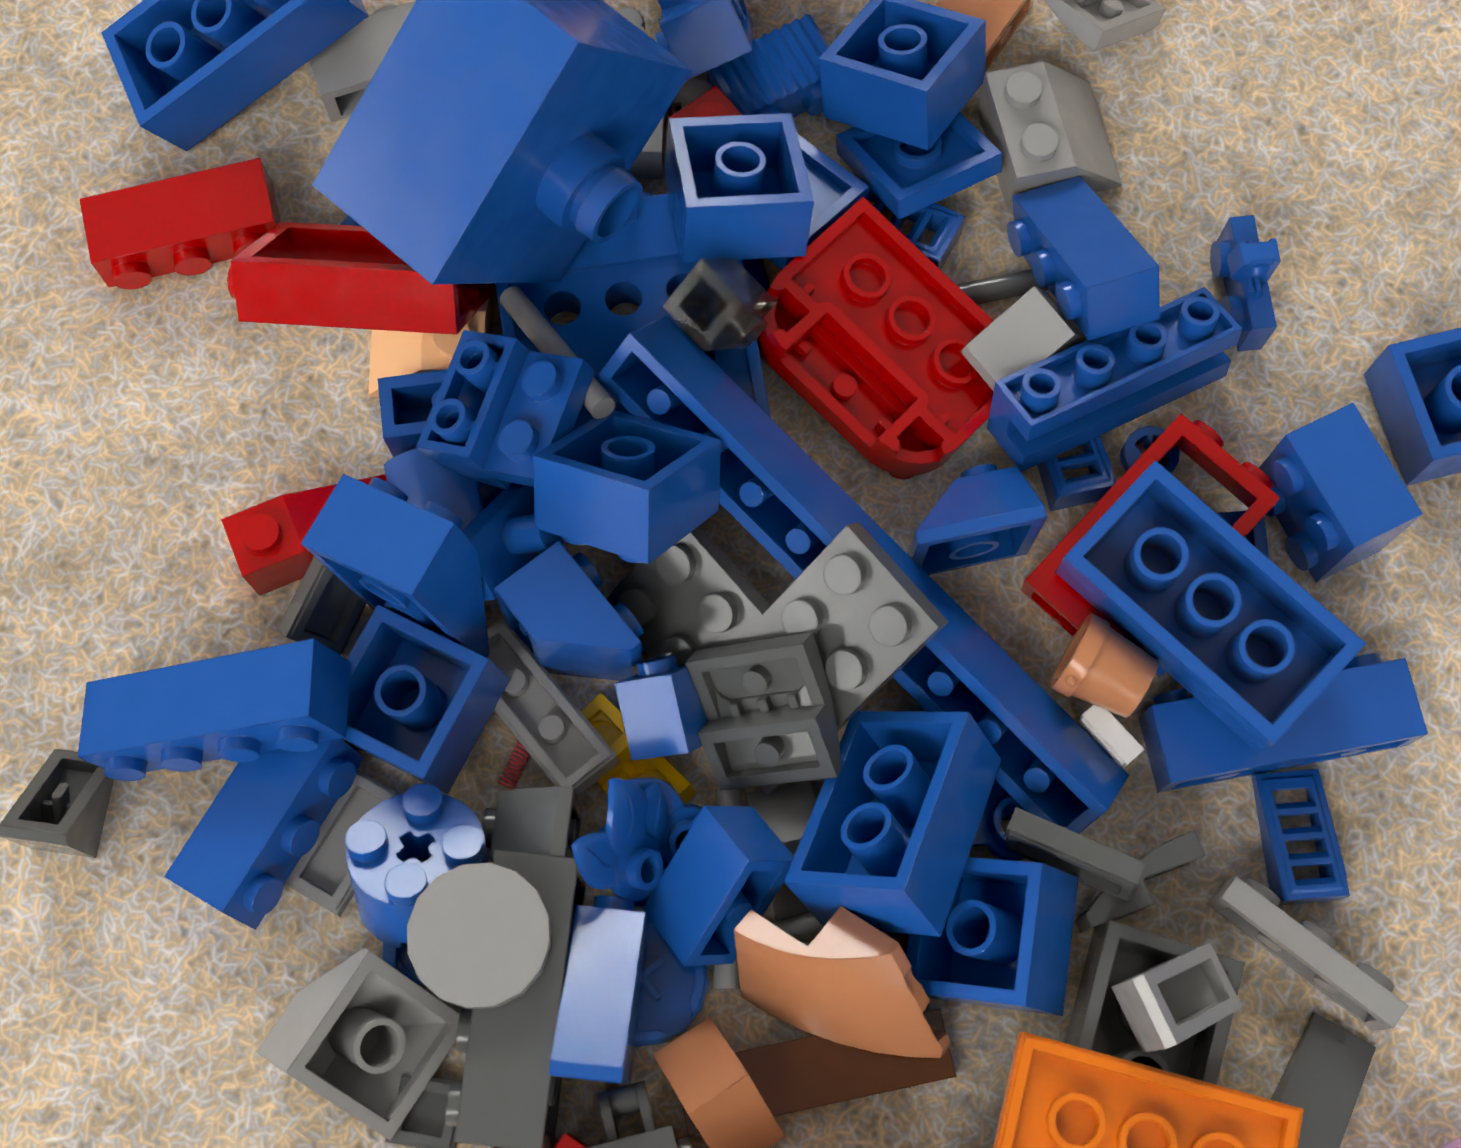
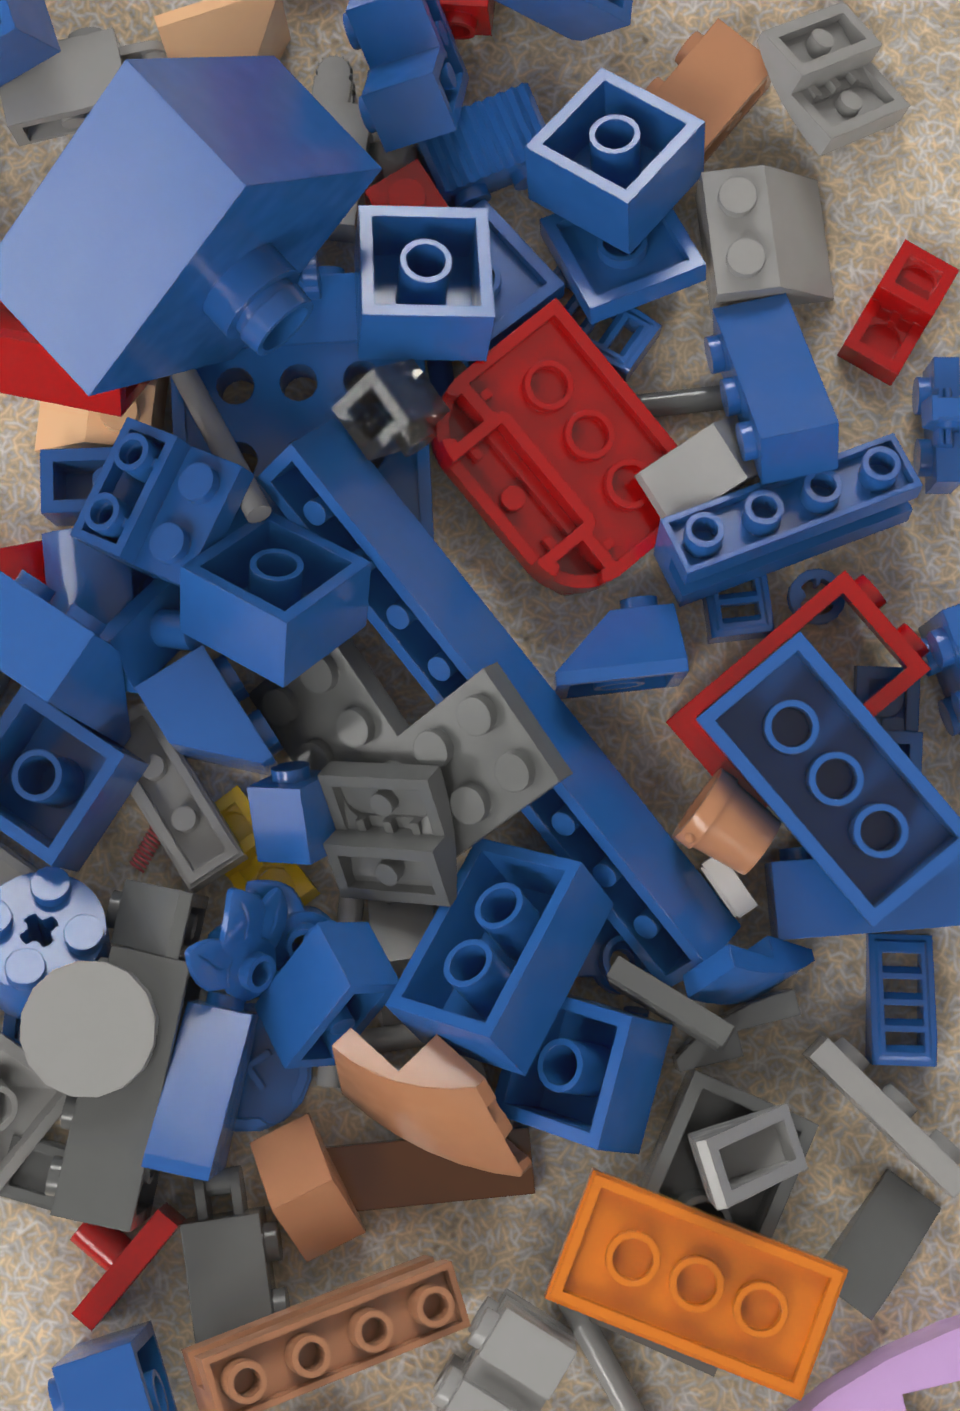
camera: 10 degrees right, 10 degrees up
(1143, 817) = (743, 974): none -> blue slope
(1184, 190) = (898, 312): none -> red slope

